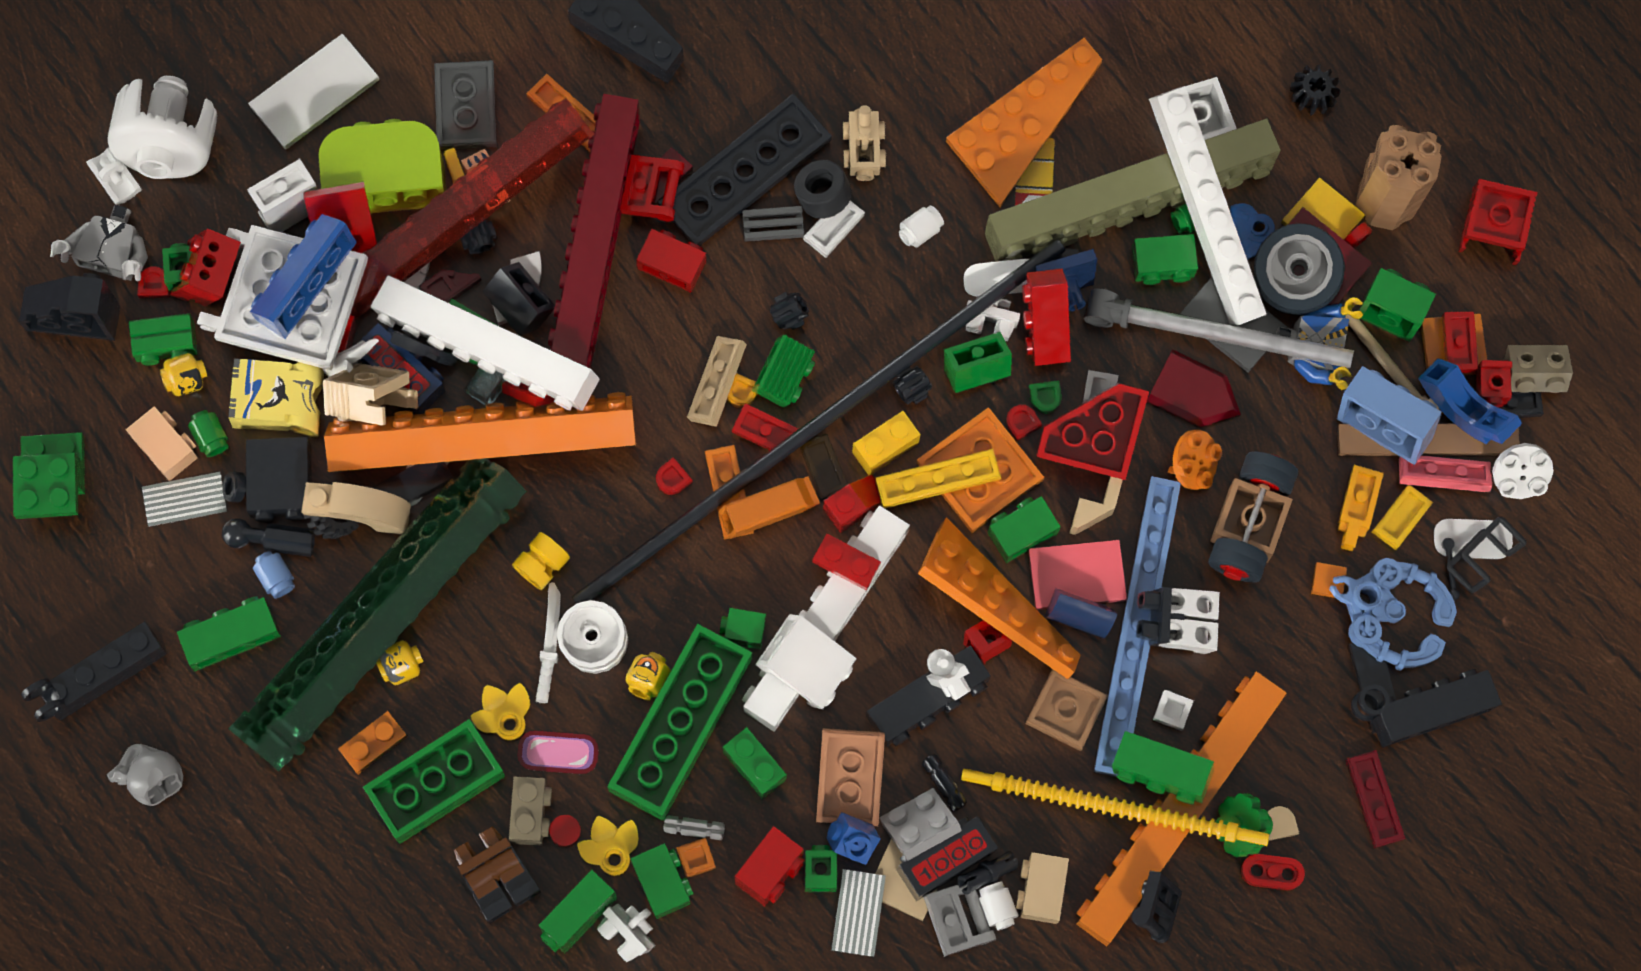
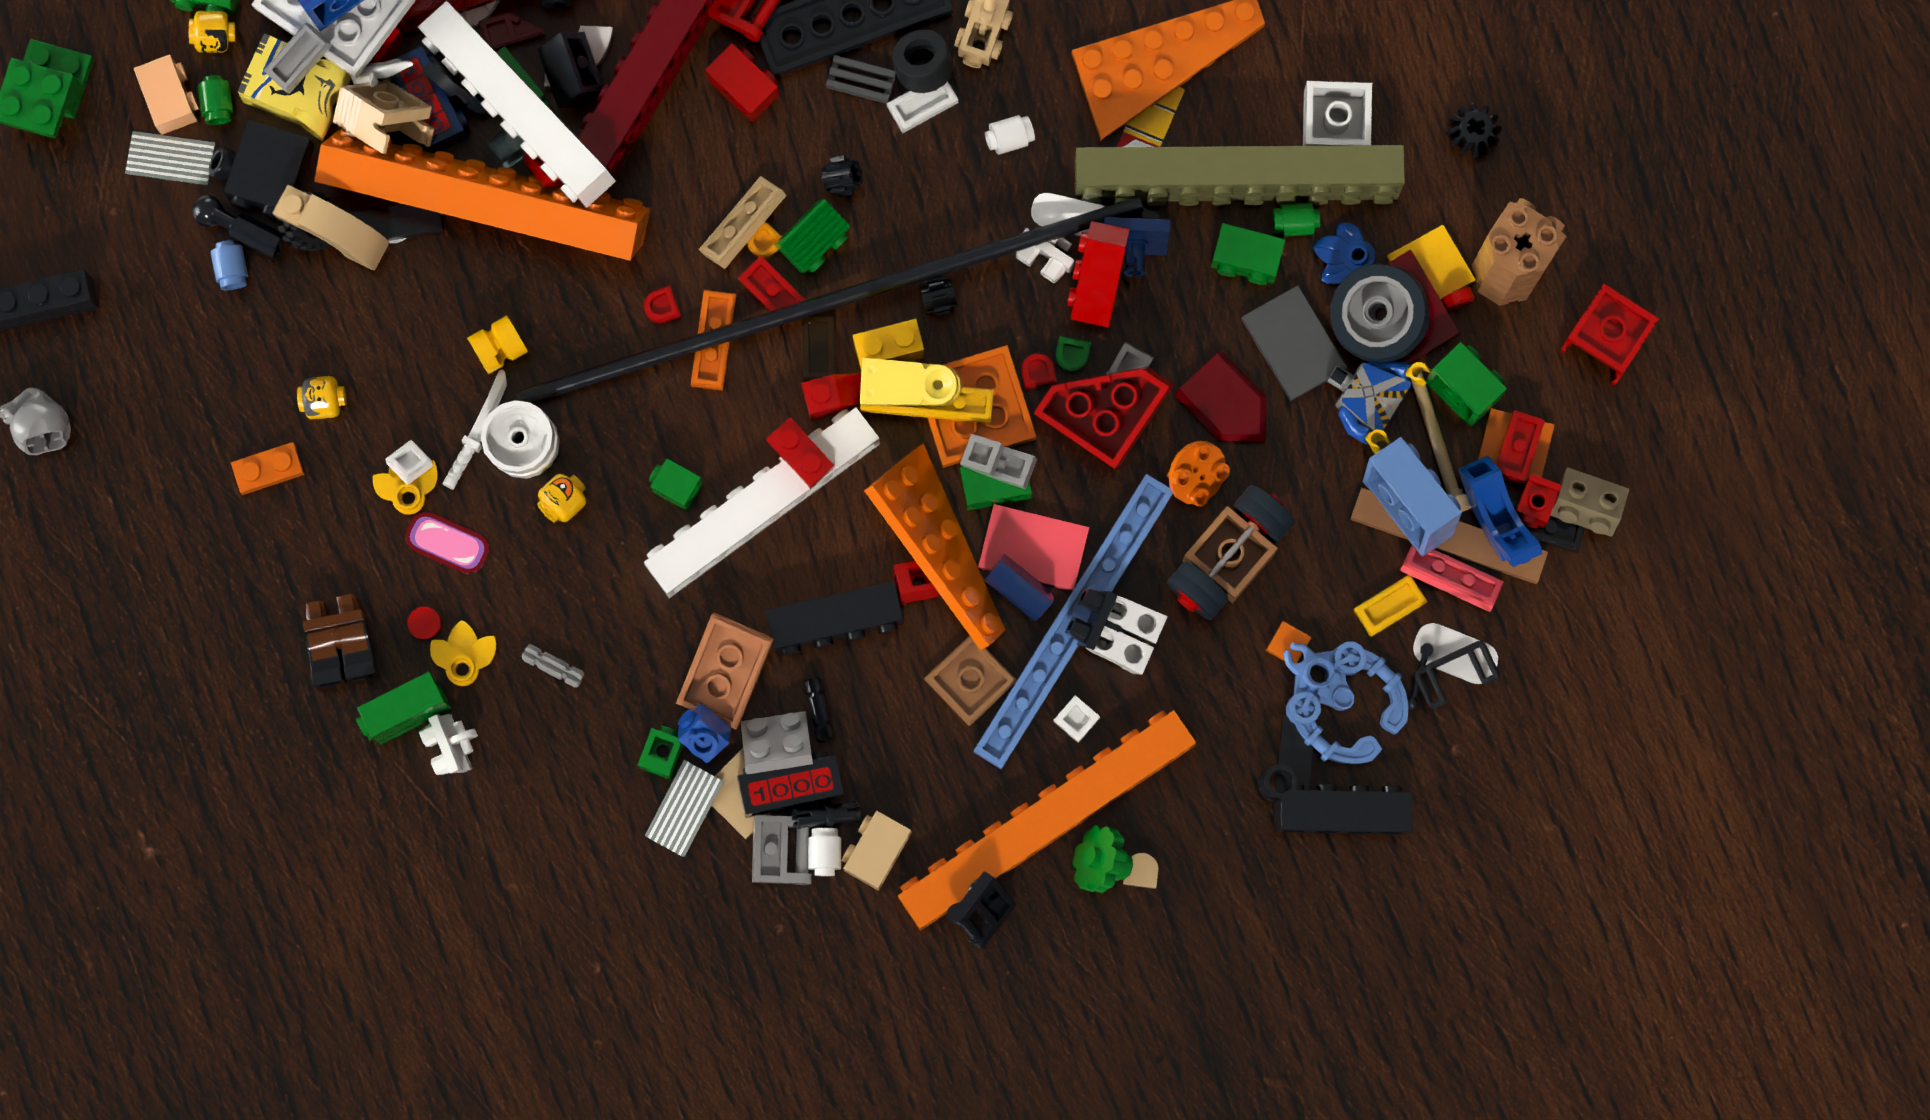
camera: 25 degrees right, 5 degrees up
(228, 633) = (164, 308): green brick -> none
(273, 369) = (297, 57): none -> light grey tile
(377, 611) = (315, 339): clear green brick -> none
(434, 781) = (311, 528): green brick -> none
(499, 692) = (409, 462): none -> white tile
(528, 811) = (394, 590): dark tan brick -> none
(661, 880) = (500, 707): green brick -> none
(680, 722) = (576, 555): green brick -> none
(695, 857) = (544, 696): orange tile -> none
(754, 763) = (635, 623): green brick -> none
(768, 507) = (746, 369): orange piece -> none
(769, 867) = (609, 732): red brick -> none
(807, 661) = (723, 539): white panel -> none
(922, 466) = (907, 383): none -> light yellow piece
(947, 674) = (855, 601): white hips -> none
(977, 362) = (1012, 295): green brick -> none
(1022, 509) = (998, 461): none -> light grey slope
(1090, 512) = (1069, 490): tan slope -> none
(1106, 308) = (1168, 285): flat silver piece -> none
(1163, 768) = (1038, 774): green brick -> none
(1207, 206) = (1304, 215): white brick -> none
(1231, 831) = (1080, 861): yellow hose -> none
(1271, 872) = (1114, 916): red plate -> none
(1358, 504) = (1349, 577): light orange hinge -> none
(1375, 799) = (1248, 881): dark red tile -> none
(1536, 472) = (1545, 607): white plate -> none

